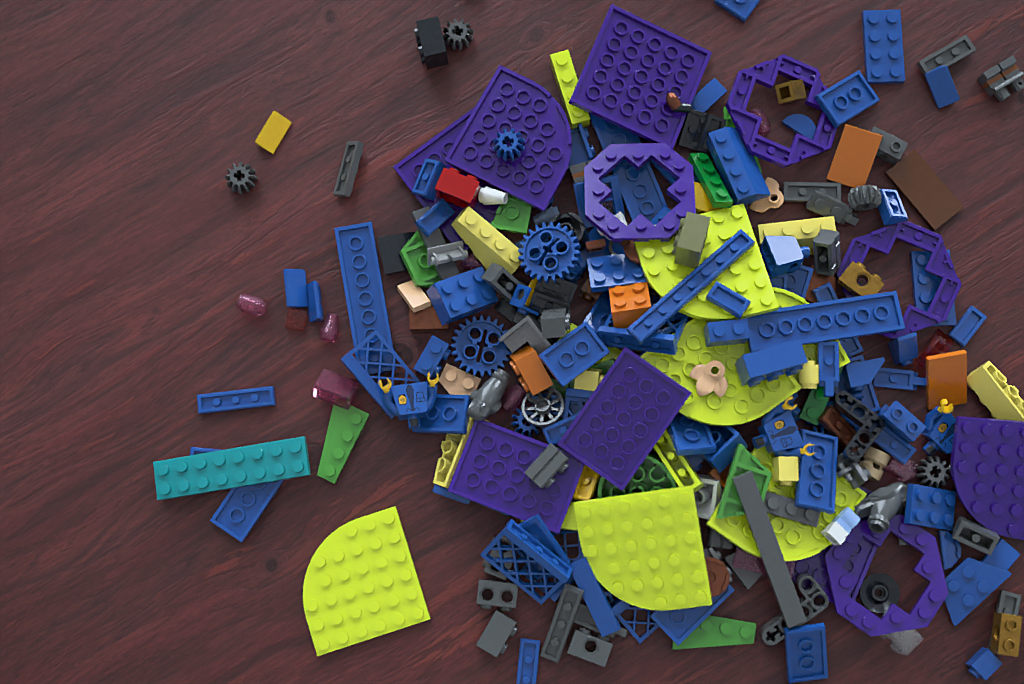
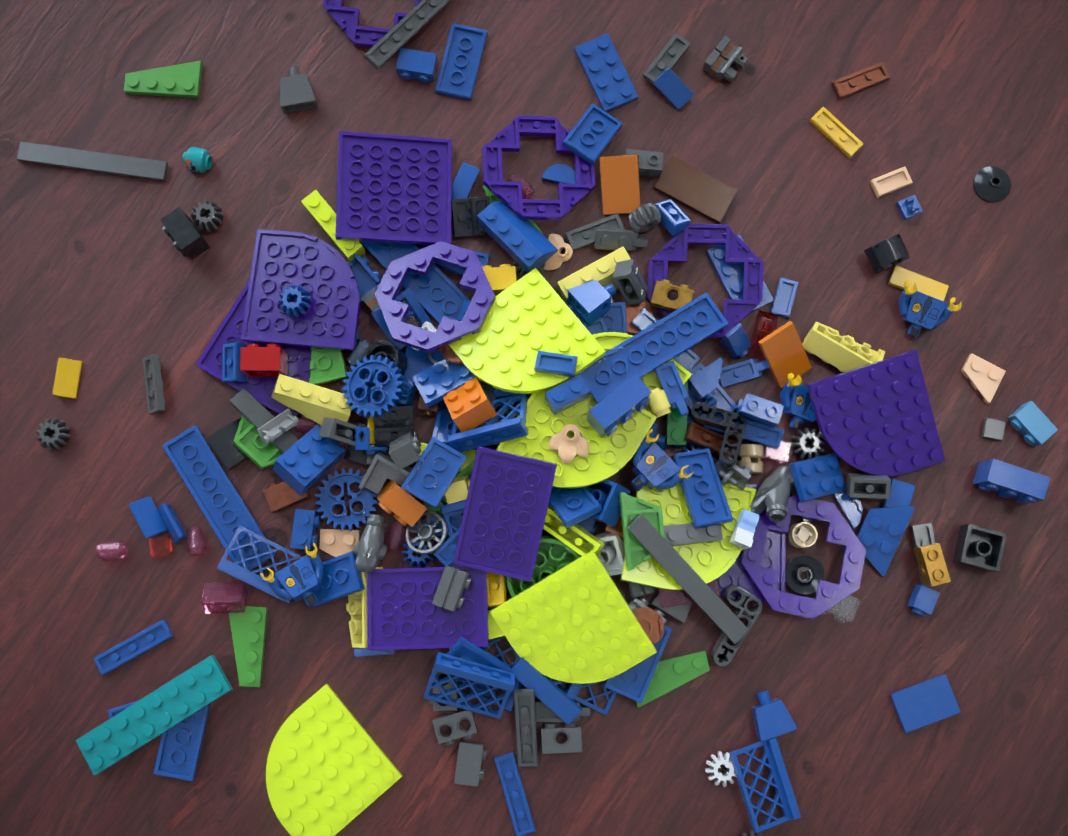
camera: 30 degrees left, 0 degrees up
(413, 296) = (263, 479): light nougat tile -> none
(434, 217) = (253, 397): blue tile -> none
(491, 196) = (299, 355): white cone -> none
(595, 245) = (415, 362): copper tile -> none
(676, 105) = (436, 201): arm -> none
(690, 286) = (516, 366): blue tile -> none
(691, 239) = (499, 321): olive brick -> none
(710, 180) = (497, 258): green plate -> none
(785, 470) = (673, 499): light yellow brick -> none
(790, 91) = (538, 147): pearl gold brick -> none
(806, 652) = (760, 658): blue tile -> none
(892, 554) = (802, 535): none -> tan wheel

